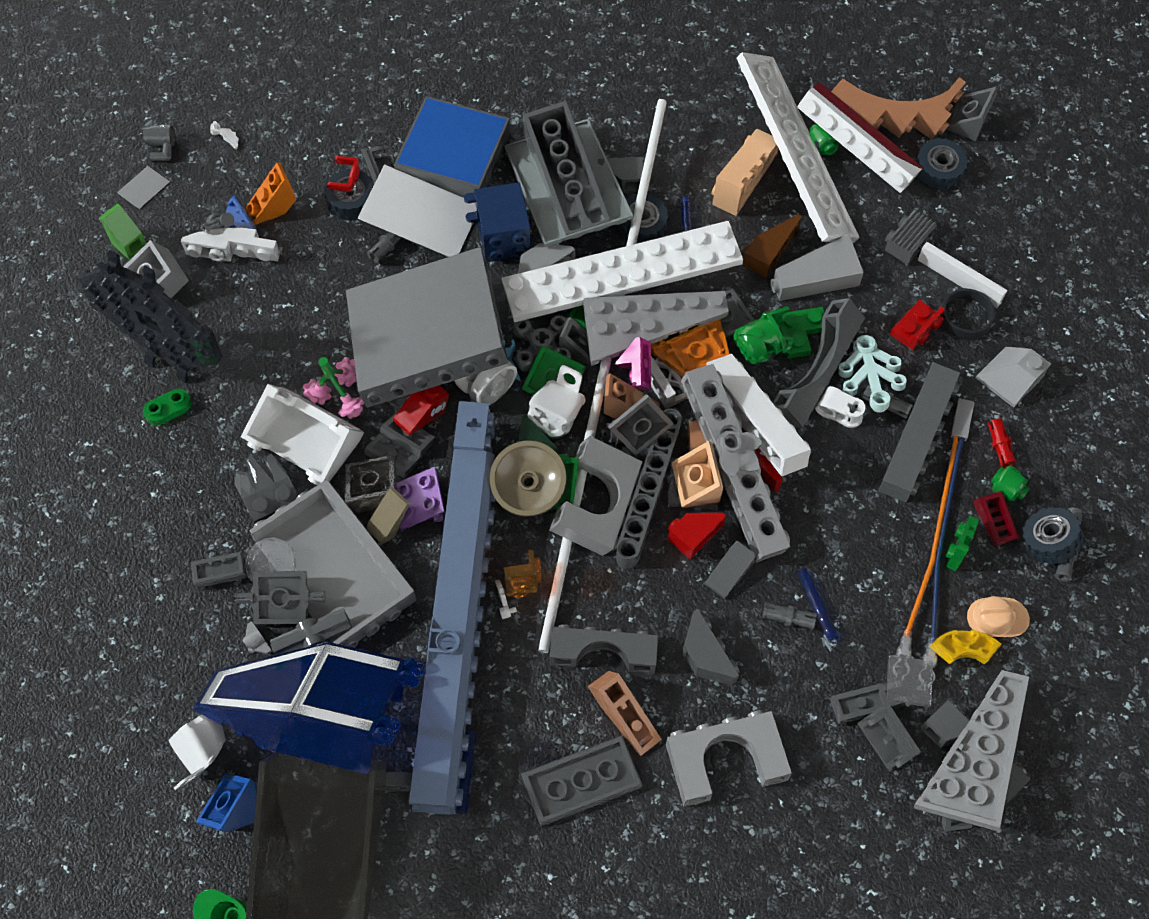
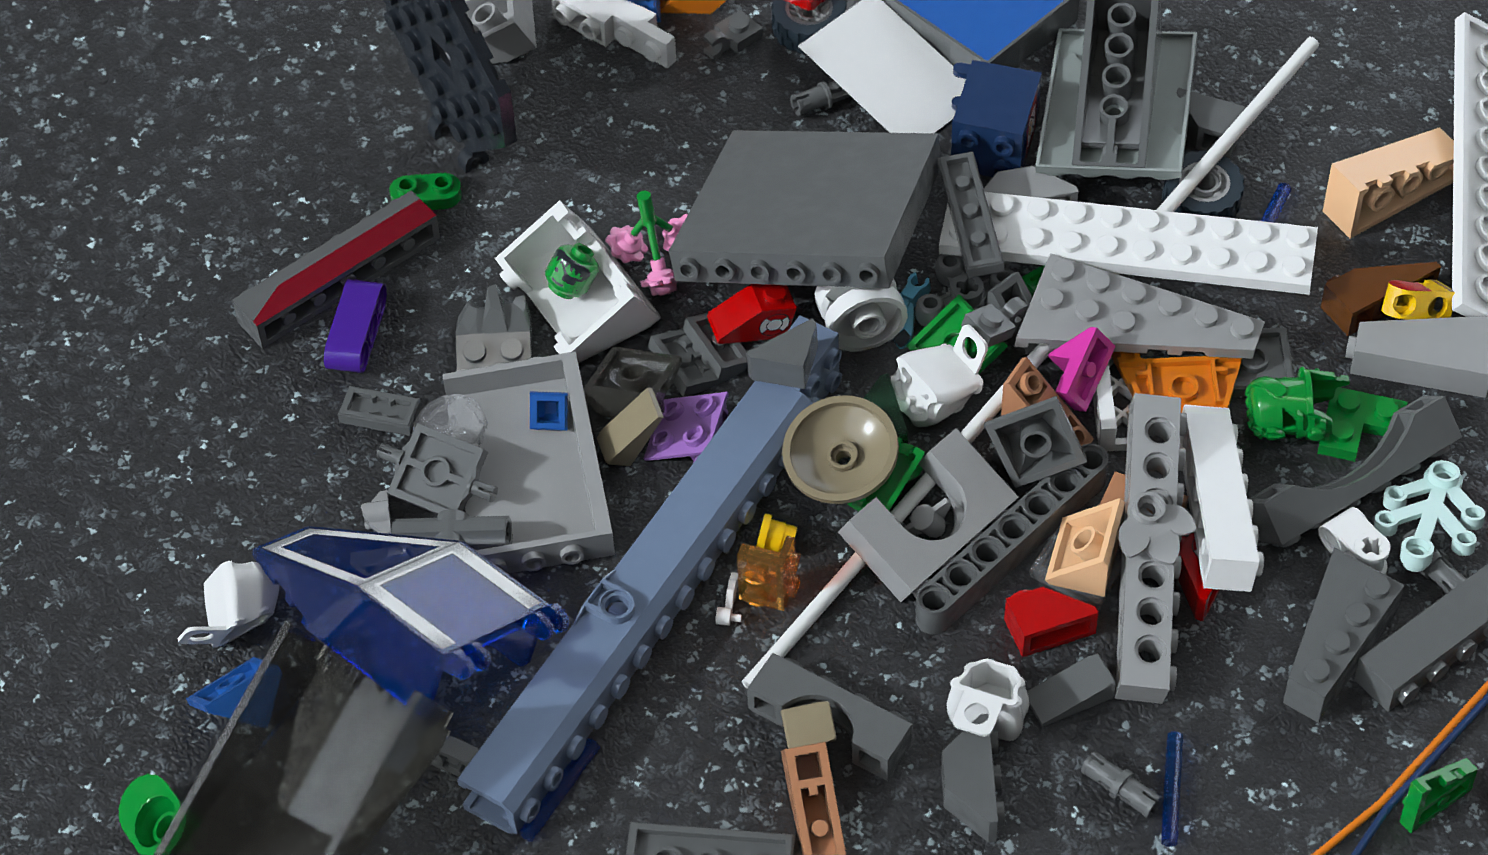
camera: 30 degrees right, 10 degrees down
(137, 485) = (320, 275): none -> dark grey brick
(171, 519) = (355, 326): none -> dark purple beam
(294, 425) = (571, 271): none -> green head
(308, 222) = (733, 32): none -> dark grey plate
(328, 525) = (548, 410): none -> blue slope
(469, 435) = (785, 358): none -> dark grey slope
(509, 547) = (774, 533): none -> yellow piece
(525, 291) = (970, 214): none -> dark grey tile
(575, 356) = (996, 324): none -> dark grey plate
(594, 497) = (929, 519): none -> light grey piece
(596, 662) = (808, 724): none -> dark tan slope
(690, 593) = (990, 690): none -> white piece
(797, 243) = (1417, 300): none -> yellow leg
(860, 460) = (1343, 626): none -> dark grey wedge

